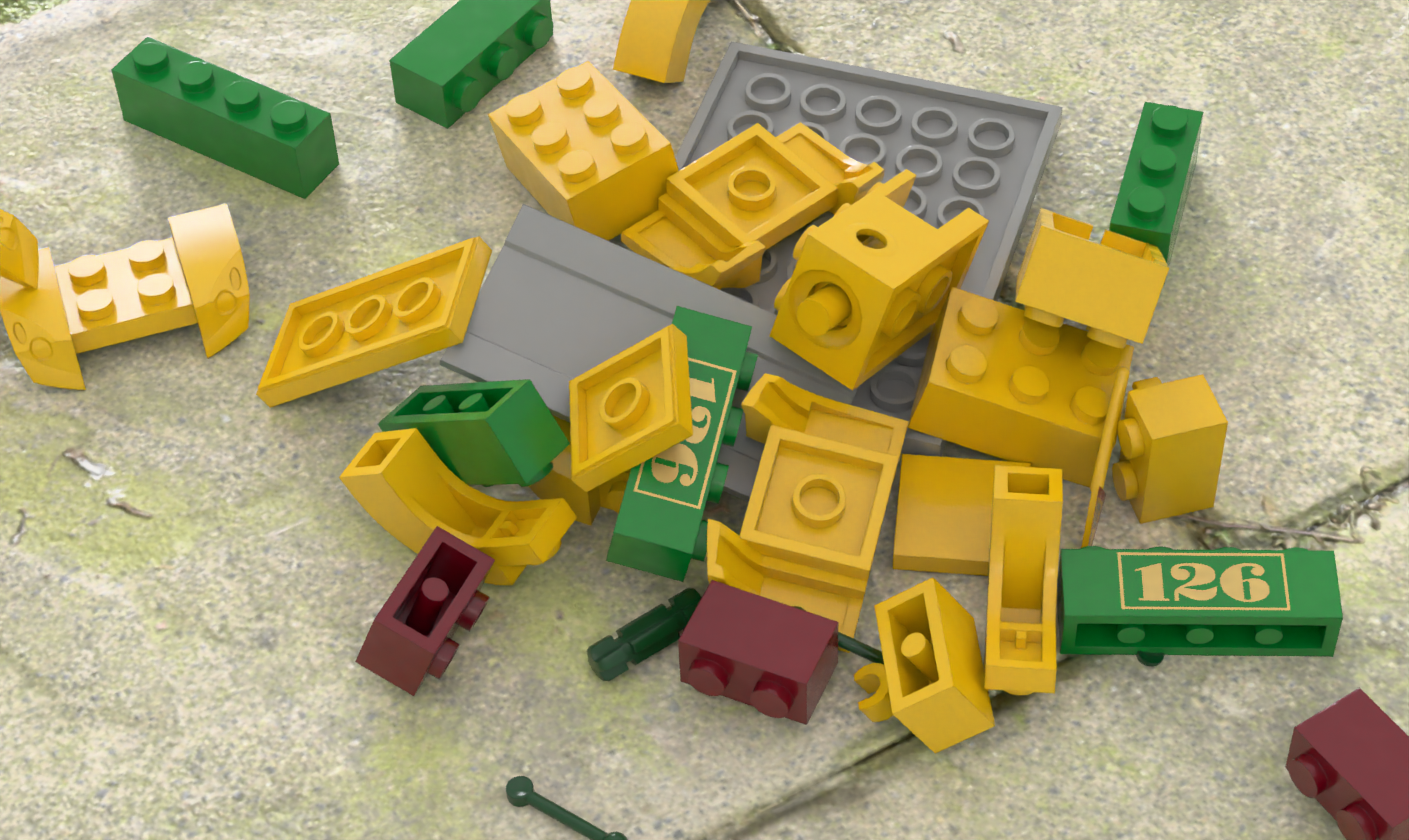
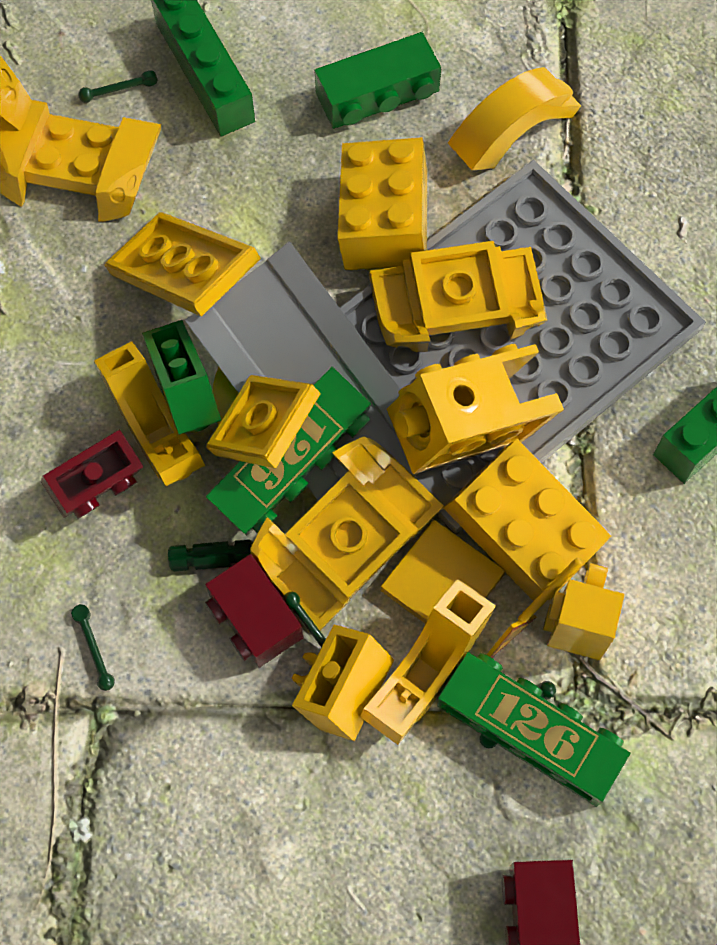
camera: 30 degrees right, 20 degrees up
(160, 176) = (147, 78): none -> dark green hinge
(1100, 285) = (597, 493): yellow piece -> none

